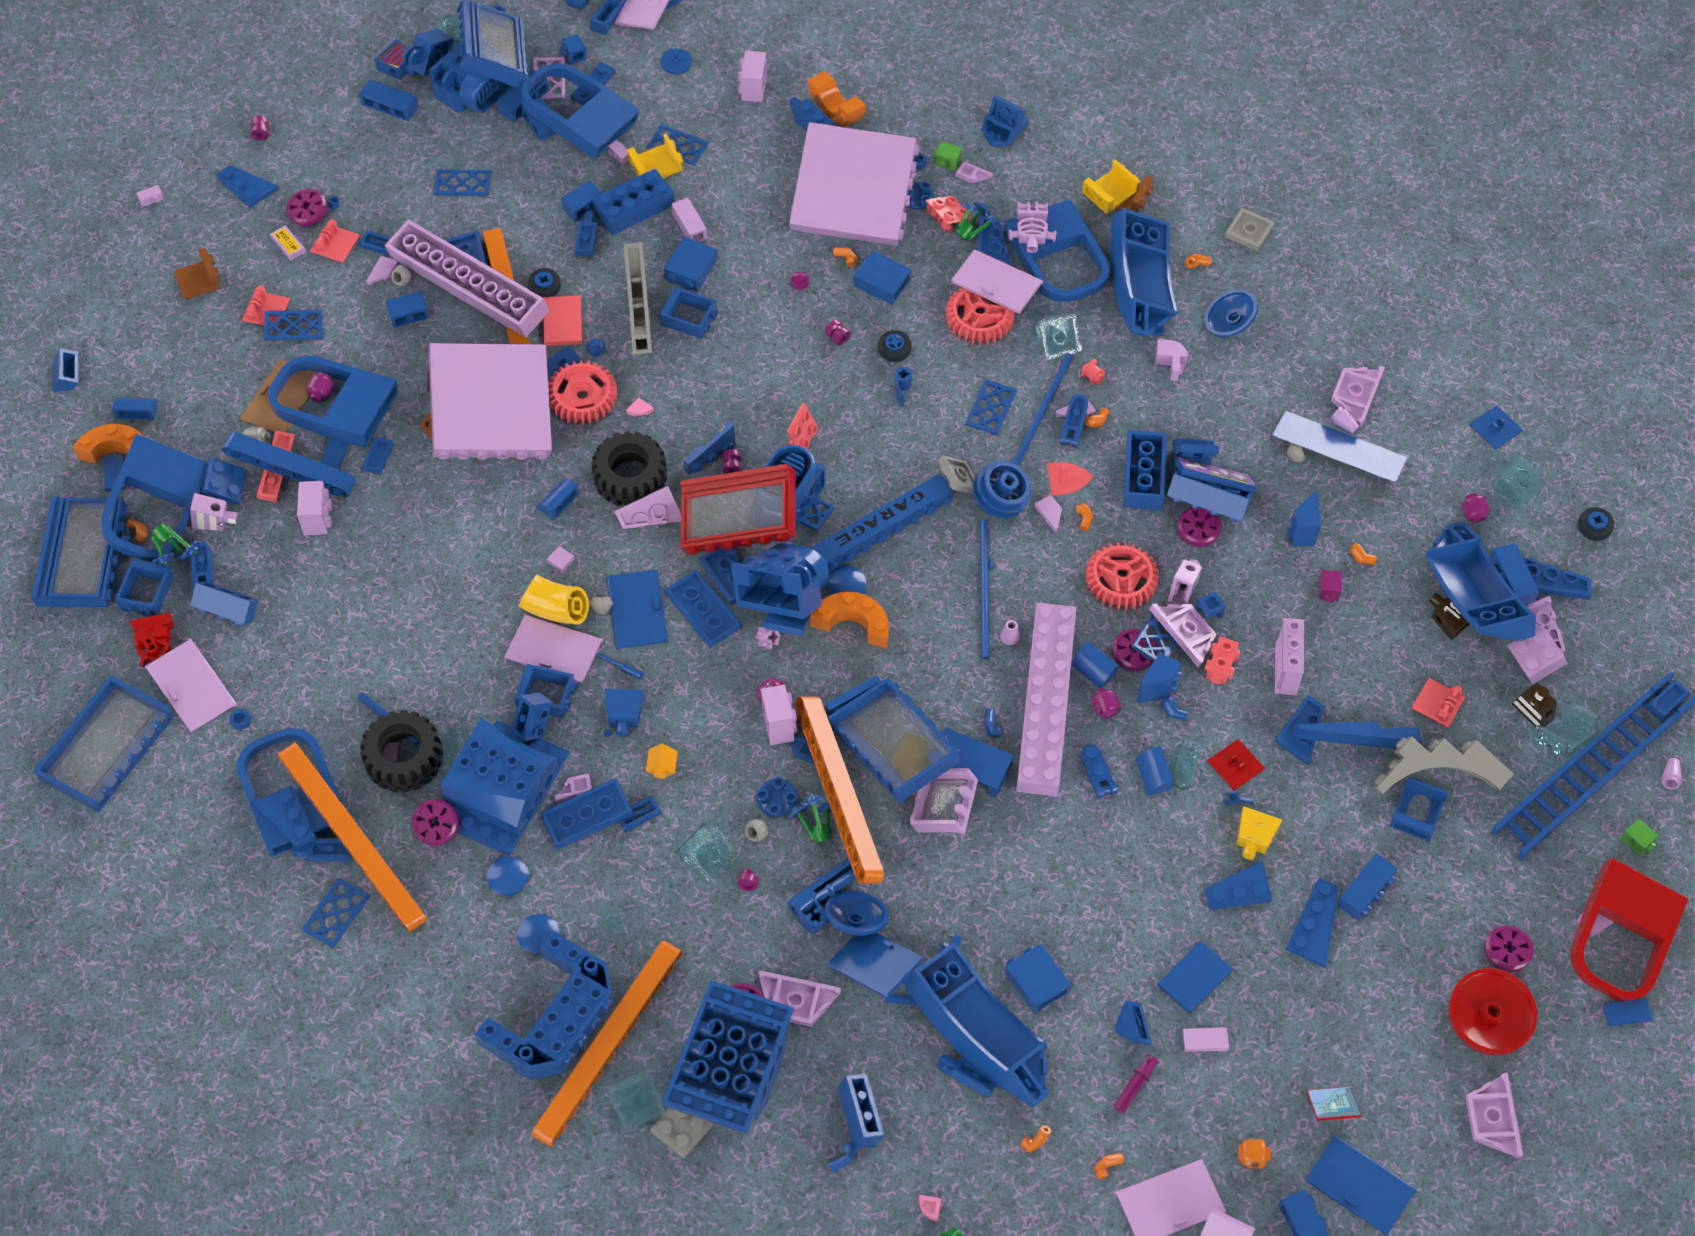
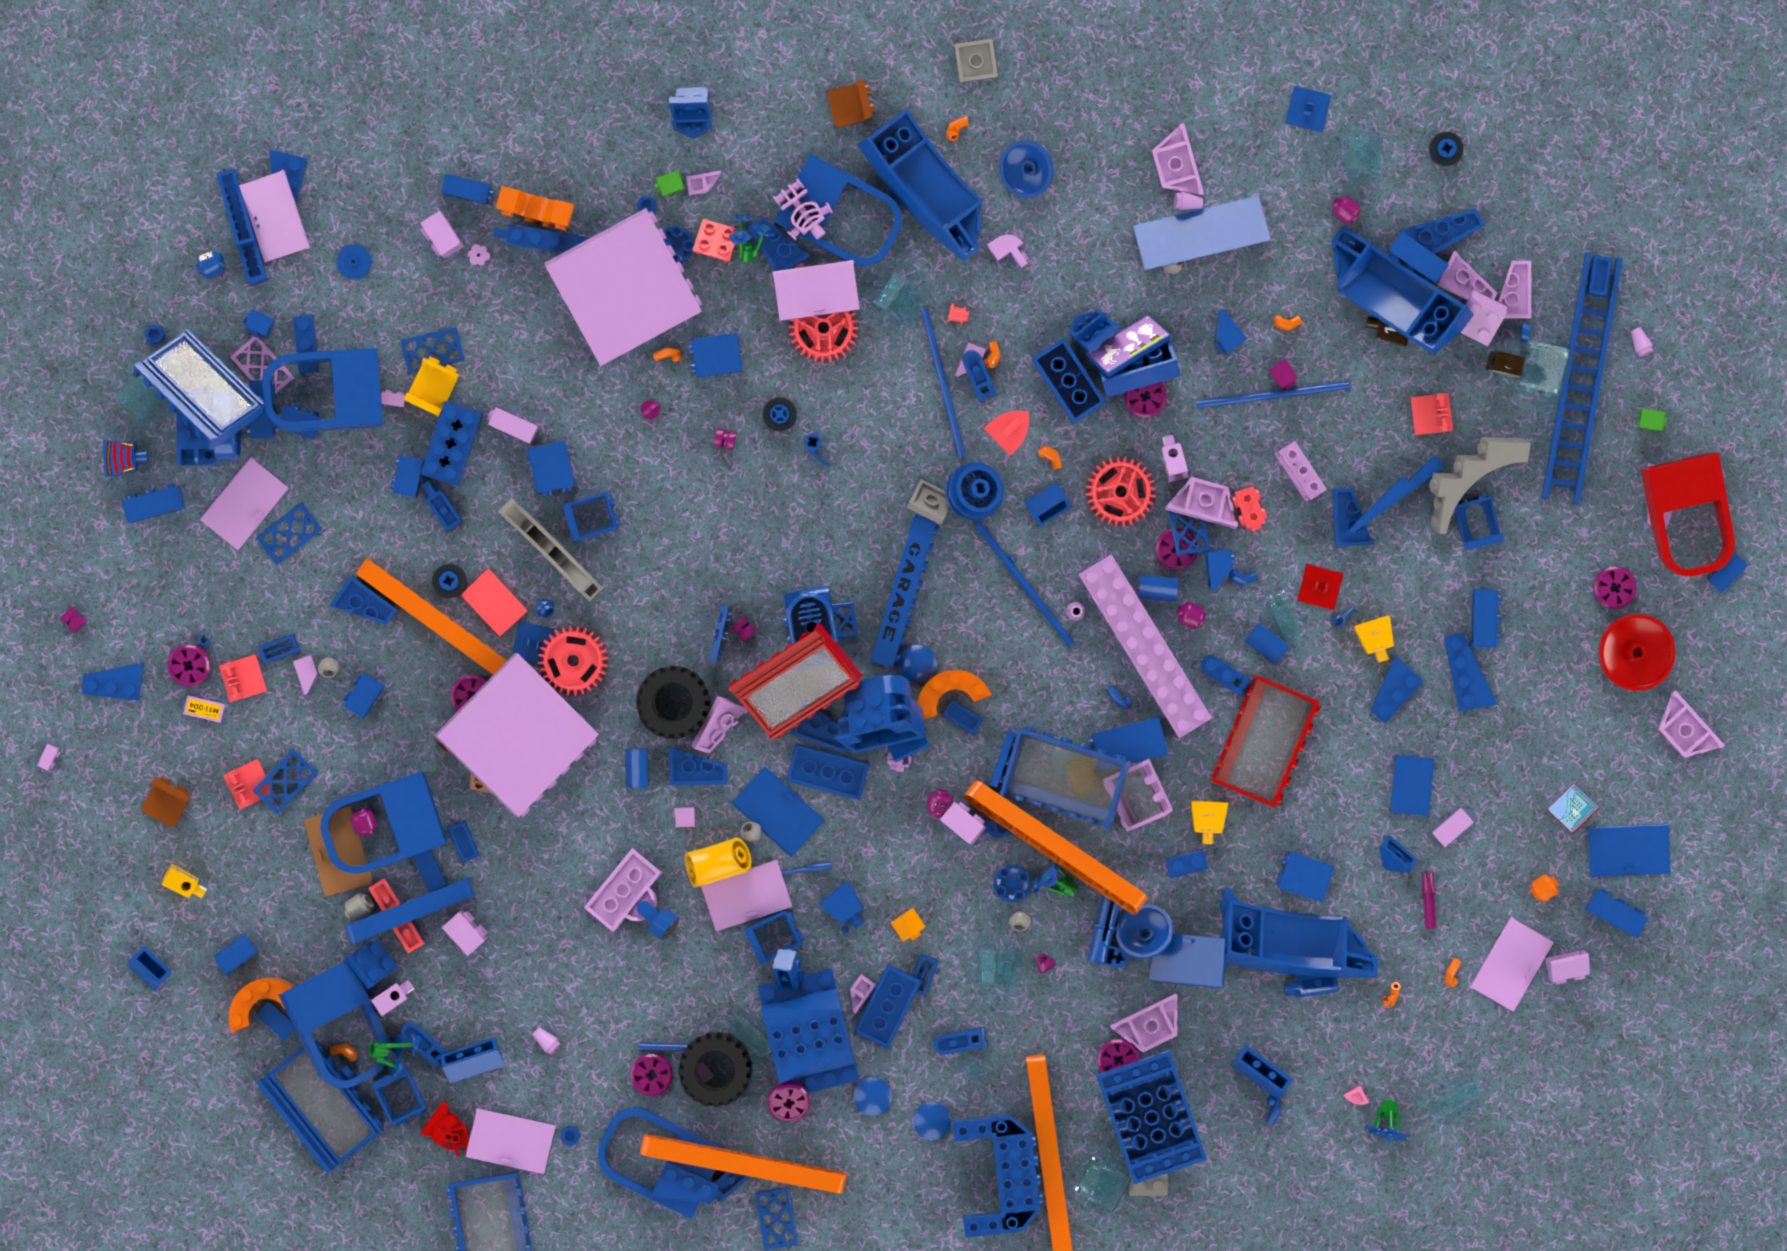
camera: 35 degrees left, 30 degrees up
(150, 328) = (176, 877): none -> yellow torso
(294, 636) = (546, 1040): none -> lavender cone
(347, 733) = (660, 1082): none -> magenta wheel
(427, 50) = (148, 435): blue brick -> none
(461, 141) = (242, 502): none -> lavender container
(463, 582) = (630, 896): none -> lavender plate
(467, 278) = (391, 636): lavender brick -> none
(599, 530) = (695, 770): none -> blue wing
(621, 887) = (960, 1041): none -> blue plate
(639, 407) = (627, 635): bright pink tile -> none
(767, 111) = (484, 256): none -> lavender plant
(796, 66) = (467, 189): none -> blue brick
(802, 428) = (776, 560): coral hinge -> none
(848, 646) = (962, 716): none -> blue tile
(939, 888) = (1186, 863): none -> blue brick
(990, 868) = (1208, 818): none -> yellow torso
(1000, 418) = (884, 405): blue window -> none
(1050, 511) = (1021, 473): lavender tile -> none
(1053, 545) = (1048, 504): none -> blue brick
(1091, 845) = (1265, 741): none -> clear window
(1112, 188) = (833, 111): yellow panel -> none
(1211, 605) = (1208, 468): blue panel -> none
(1309, 598) = (1273, 394): none -> blue piece
(1568, 695) = (1524, 333): none -> blue tile
(1584, 663) = (1517, 291): none -> lavender wing

